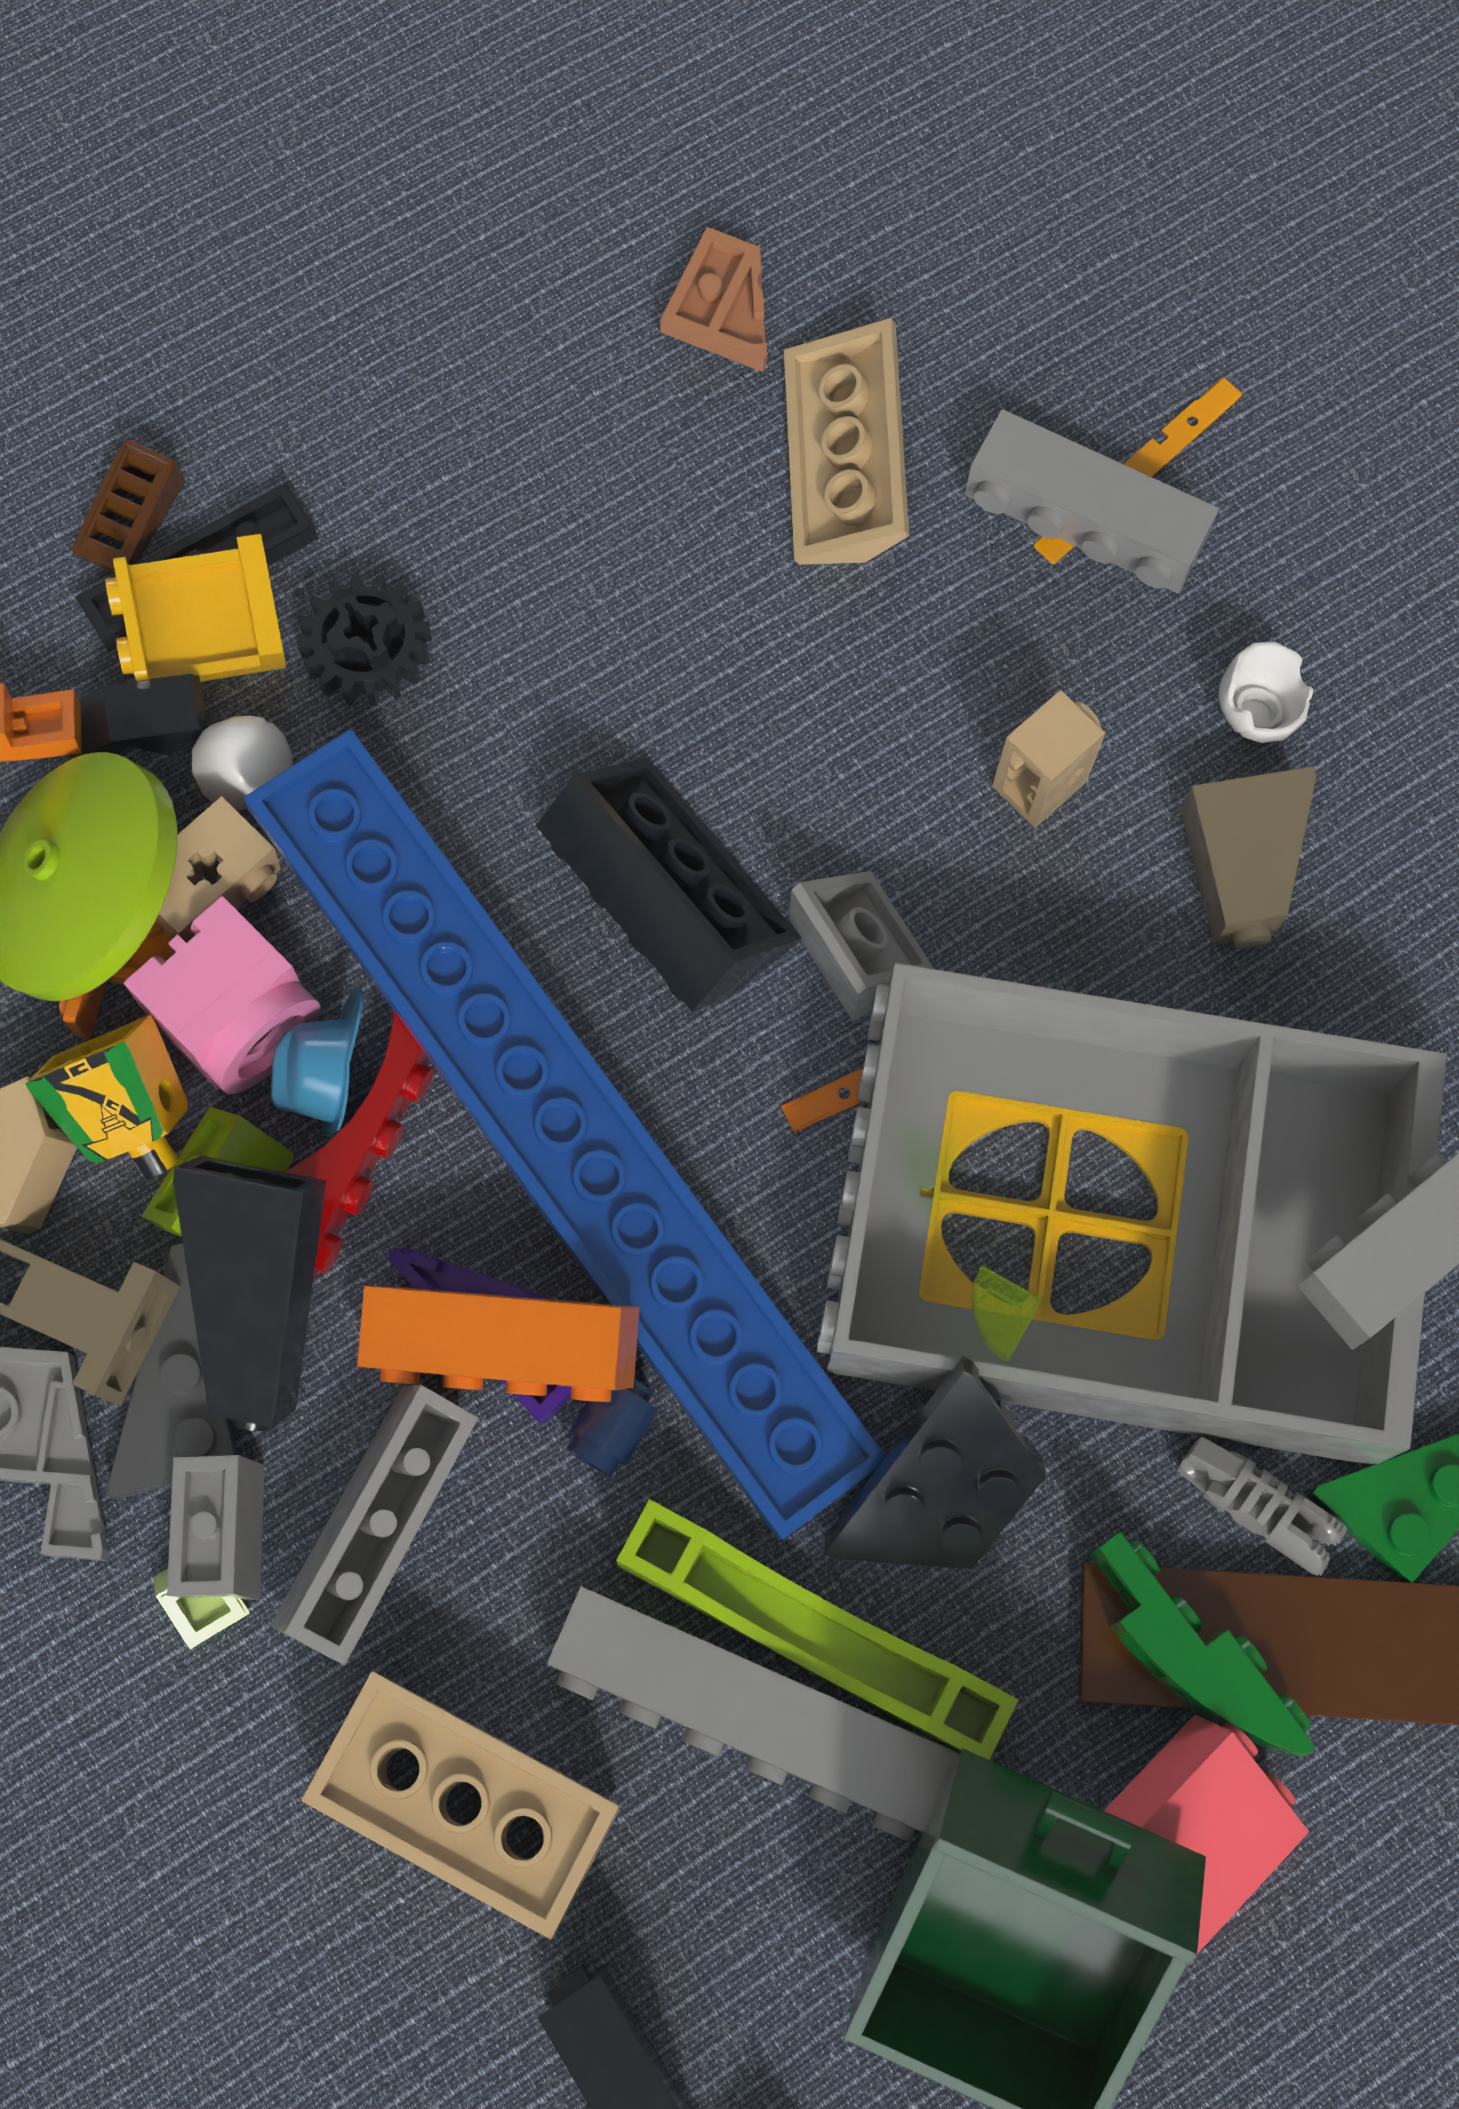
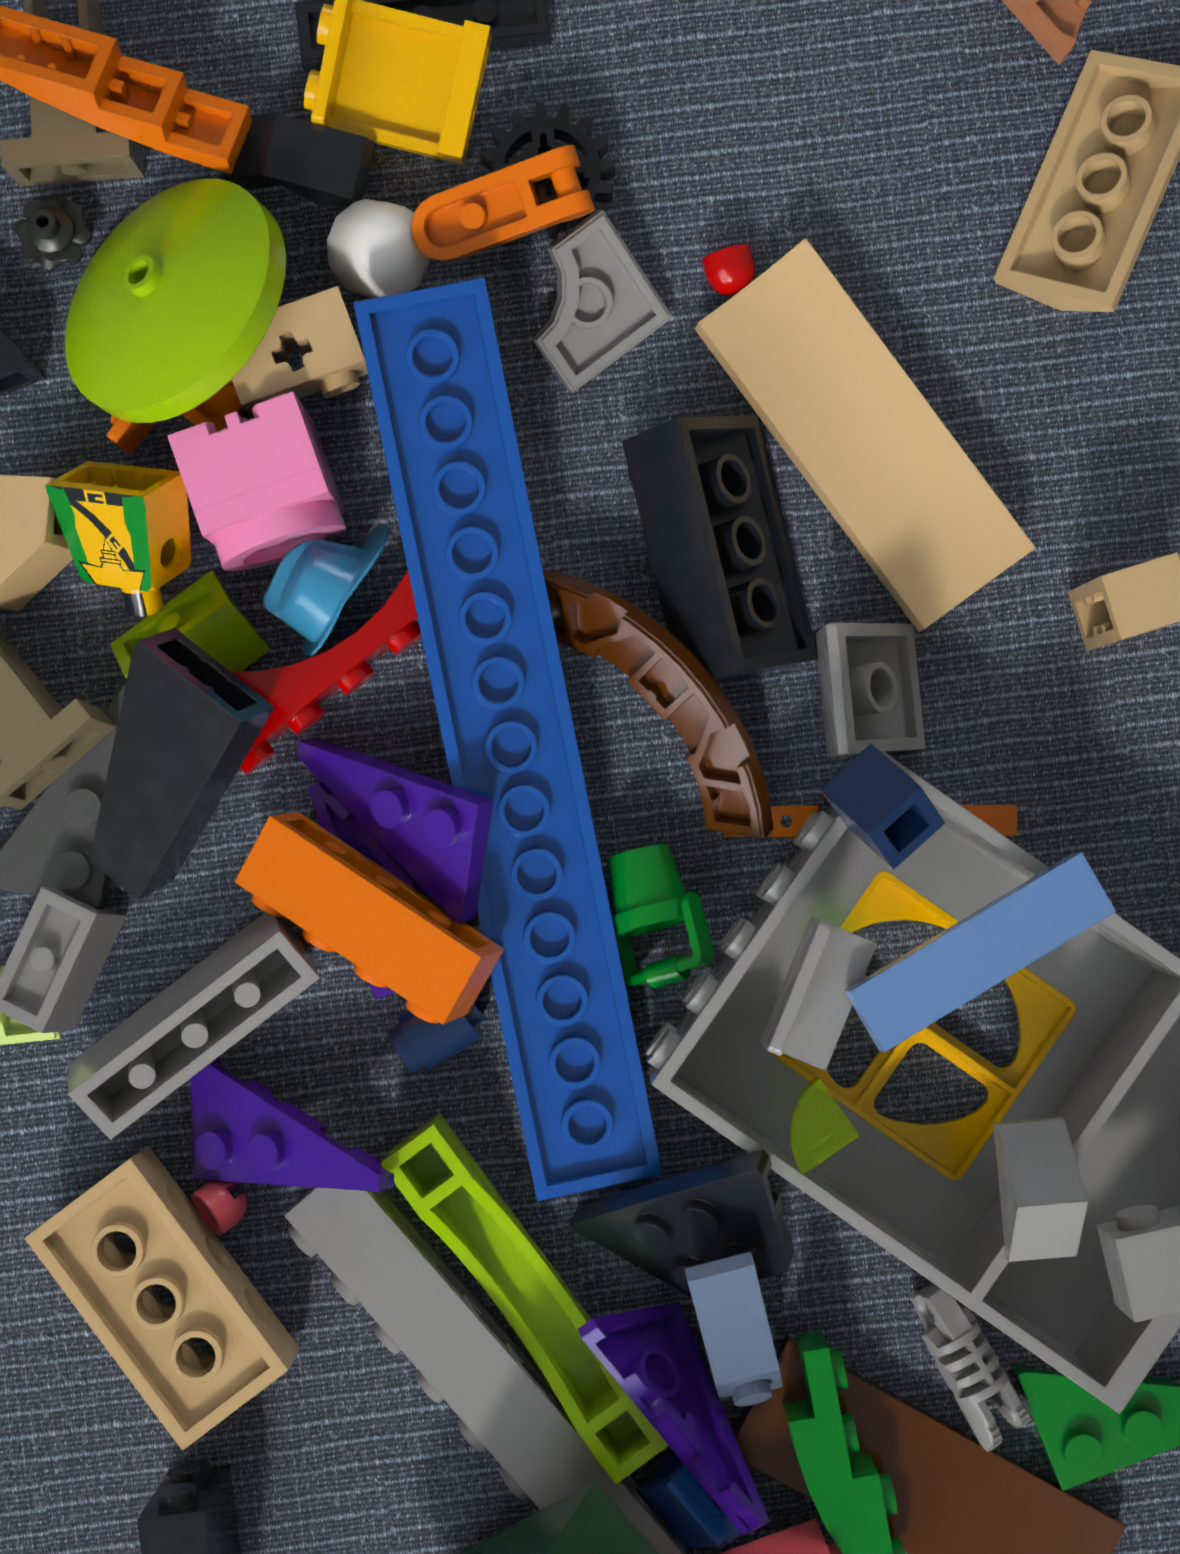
camera: 30 degrees right, 15 degrees up
(336, 675) = (500, 207): none -> orange plate
(462, 724) = (600, 303): none -> light grey tile
(478, 1698) = (218, 1205): none -> coral hinge
(483, 1606) = (255, 1138): none -> dark purple wing
(507, 1231) = (420, 821): none -> dark purple wing
(562, 647) = (730, 269): none -> red hinge
(690, 1011) = (677, 689): none -> reddish brown tile
(749, 732) = (863, 436): none -> tan arch
(759, 1213) = (650, 899): none -> green piece
(914, 996) = (882, 806): none -> dark blue brick
(941, 1192) = (813, 997): none -> light grey panel
(988, 1643) = (666, 1378): none -> dark purple wing
(1023, 1554) = (735, 1329): none -> sand blue slope
(1063, 1088) = (980, 951): none -> medium blue tile
(1075, 1748) = (686, 1506): none -> blue brick
(1229, 1275) = (1039, 1189): none -> light grey slope

